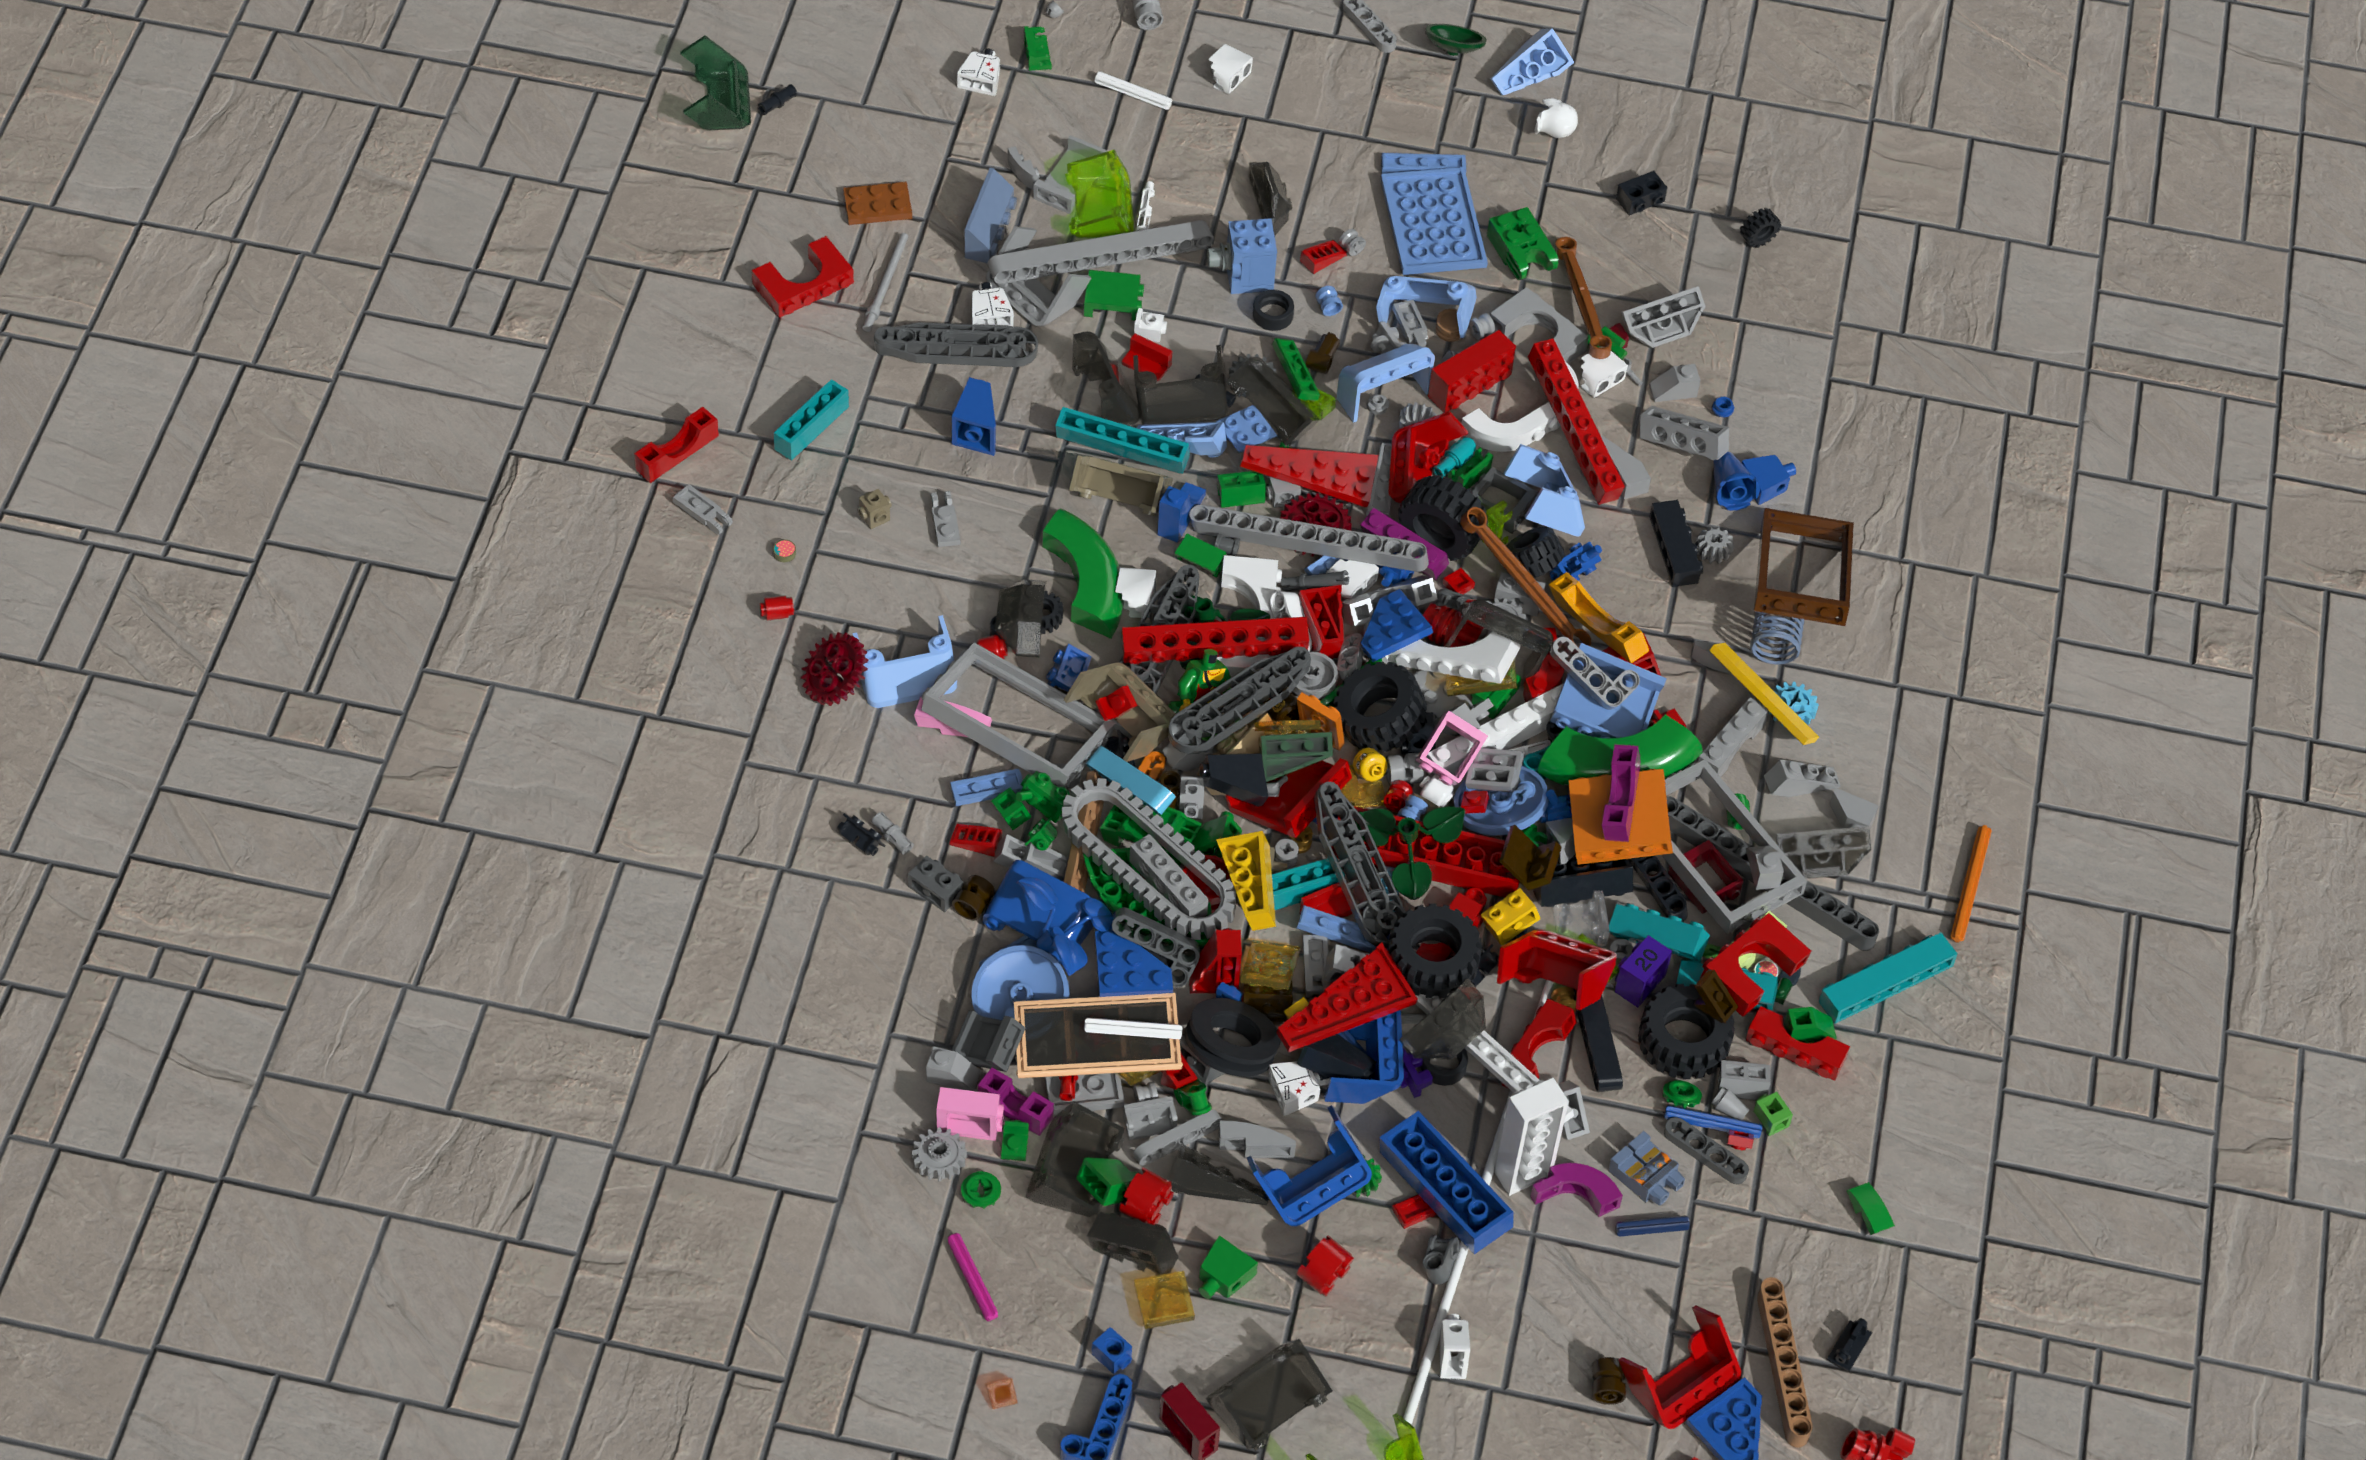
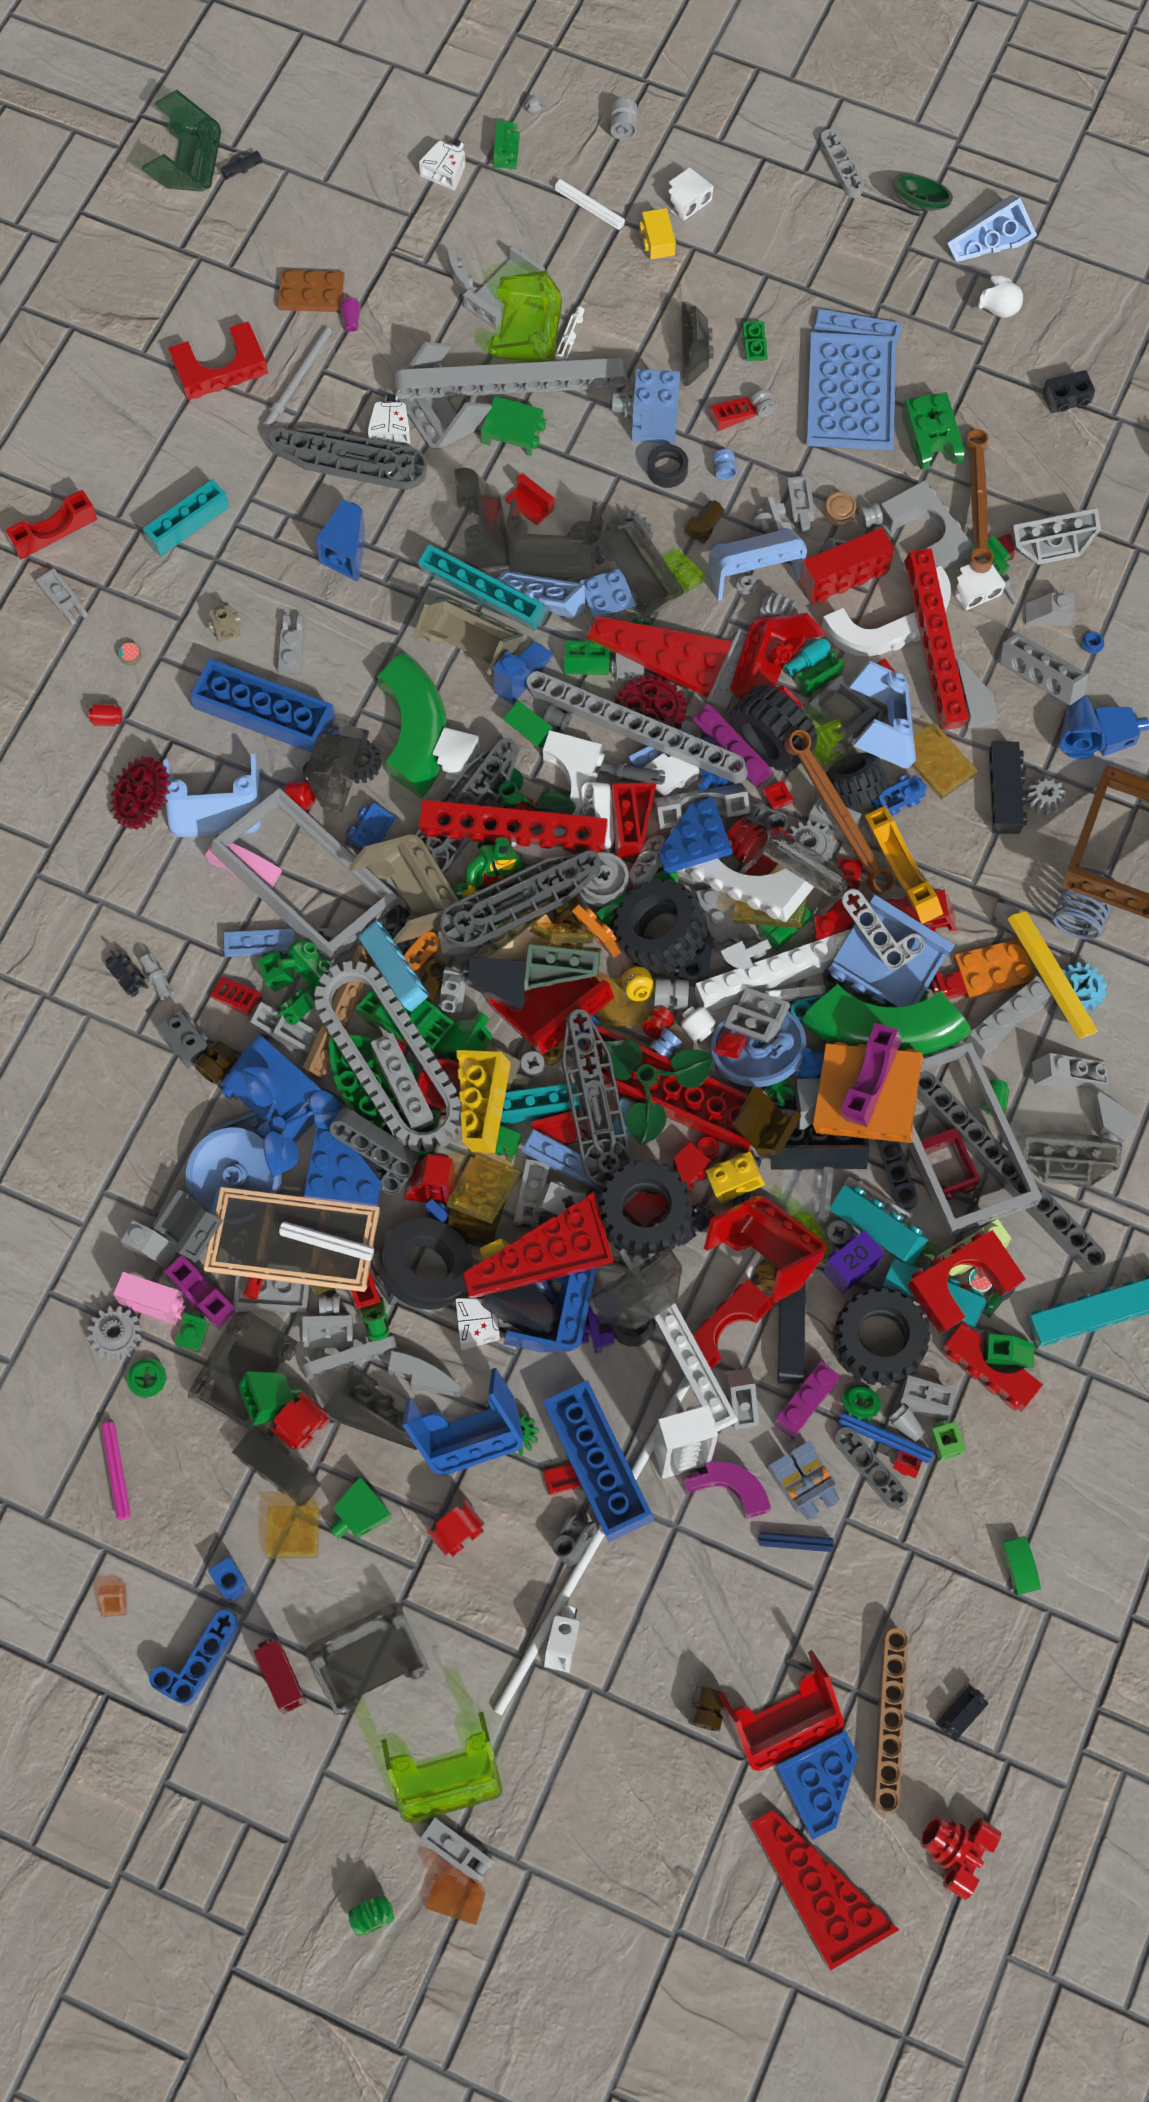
camera: 15 degrees right, 15 degrees up
(923, 217) = (350, 313): none -> magenta cone
(934, 575) = (261, 705): none -> blue brick
(989, 218) = (411, 323): sand blue slope -> none
(1116, 703) = (400, 878): red bracket -> none
(1150, 325) = (541, 465): white brick -> none
(1209, 106) = (658, 233): none -> yellow brick
(1274, 788) = (535, 996): light grey hand -> none
(1283, 926) = (507, 1143): none -> green brick
(1296, 369) = (672, 536): green plate -> none
(1327, 189) = (754, 341): none -> green slope
(1428, 291) = (848, 476): light blue windscreen -> none
(1464, 729) = (707, 1014): bright pink window -> none
(1608, 530) = (941, 761): none -> clear yellow plate
(1629, 1100) = (807, 1400): none -> magenta arch
(1706, 702) = (994, 968): none -> orange plate
(1714, 997) = (913, 1314): dark brown slope -> none
(1765, 866) = (1001, 1175): light grey slope -> none

